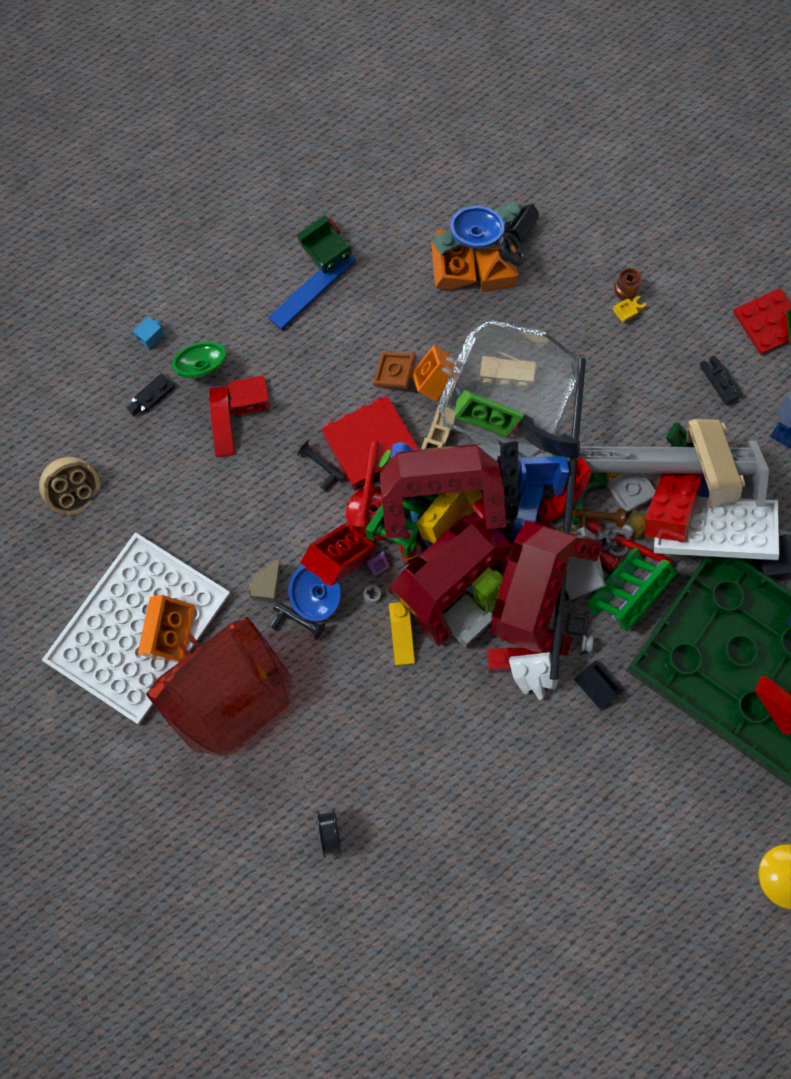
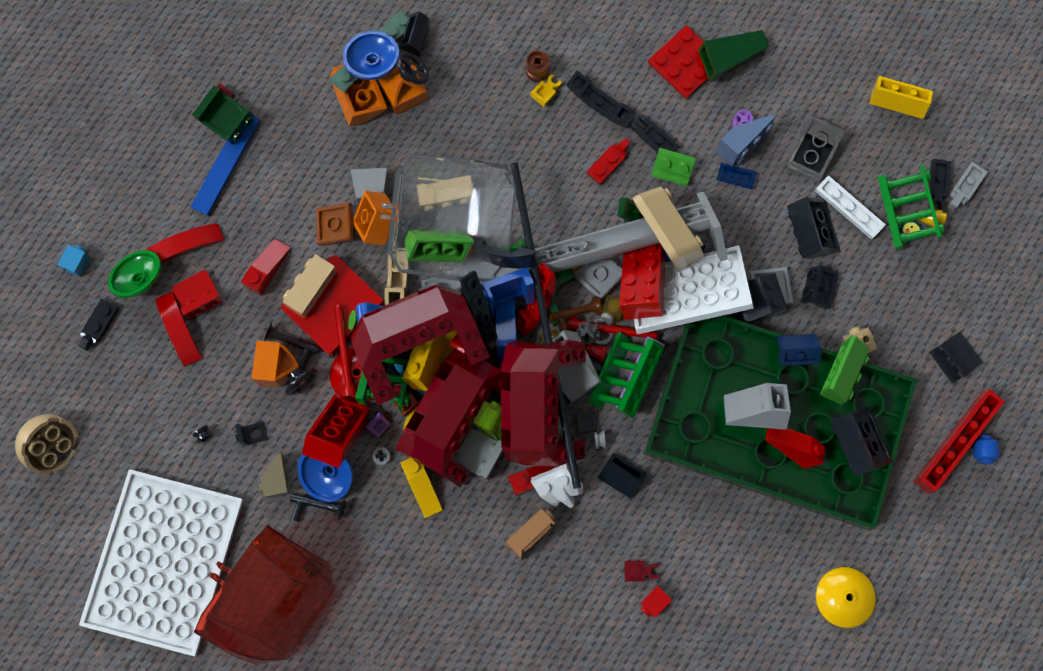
camera: 20 degrees left, 5 degrees up
(164, 626) = (191, 555): orange slope -> none
(212, 521) = (202, 434): none -> black bush
(249, 534) = (243, 434): none -> black bracket
(255, 345) = (187, 241): none -> red slope
(301, 480) = (276, 366): none -> orange piece
(318, 390) = (265, 267): none -> red slope
(354, 415) = (309, 285): none -> tan brick
(441, 338) = (369, 179): none -> light grey torso
(494, 709) = (531, 532): none -> medium nougat window
(586, 782) = (636, 571): none -> dark red plate
(595, 817) = (654, 602): none -> red brick
(670, 389) = (608, 161): none -> red hinge
(677, 333) = (599, 101): none -> black slope
(732, 411) = (673, 167): none -> bright green bracket
(757, 656) = (758, 407): none -> light grey slope

